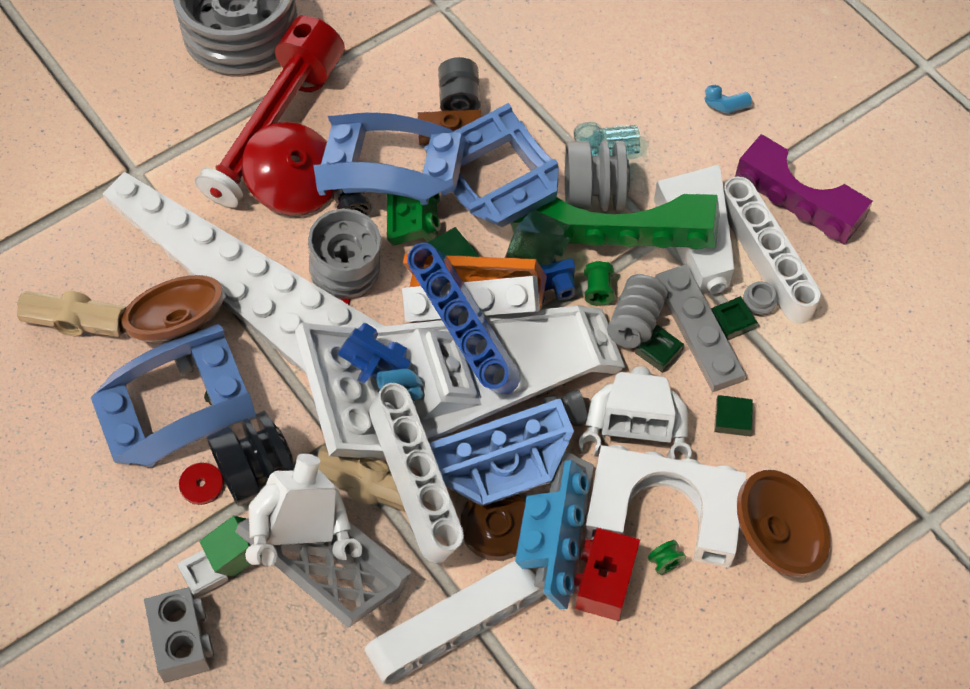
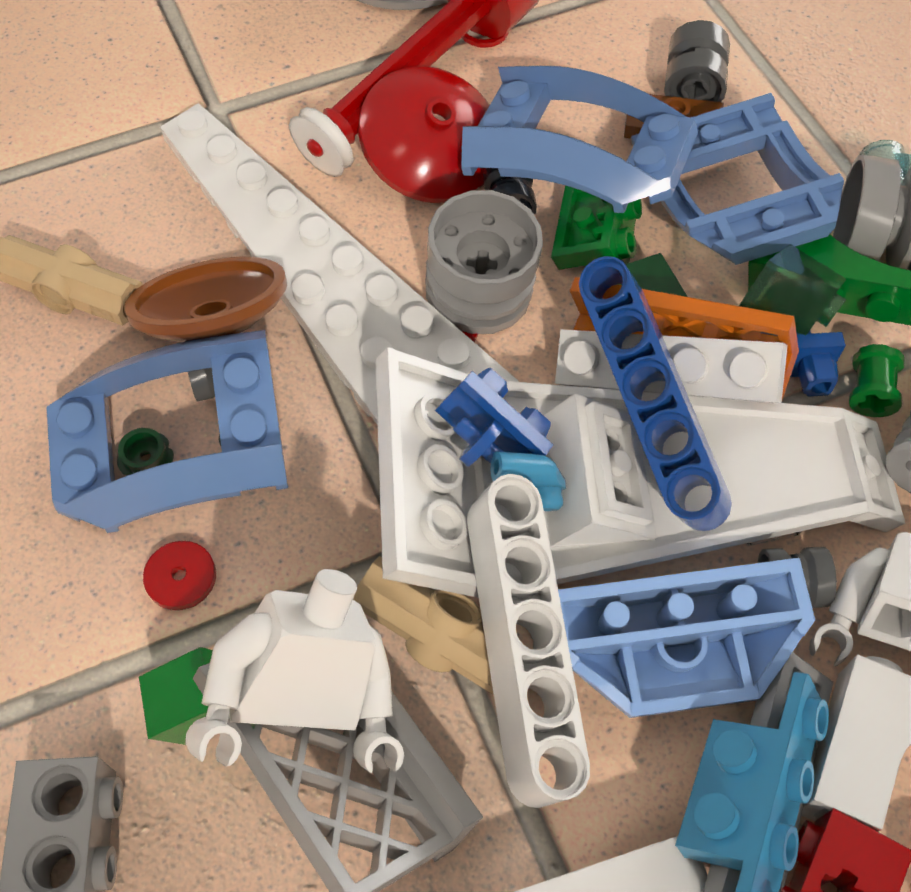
camera: 15 degrees right, 0 degrees up
(156, 408) = (140, 443): none -> dark green plate
(200, 574) = (127, 733): white tile -> none
(251, 457) = (255, 553): black wheel -> none
(494, 528) = (645, 762): reddish brown tile -> none

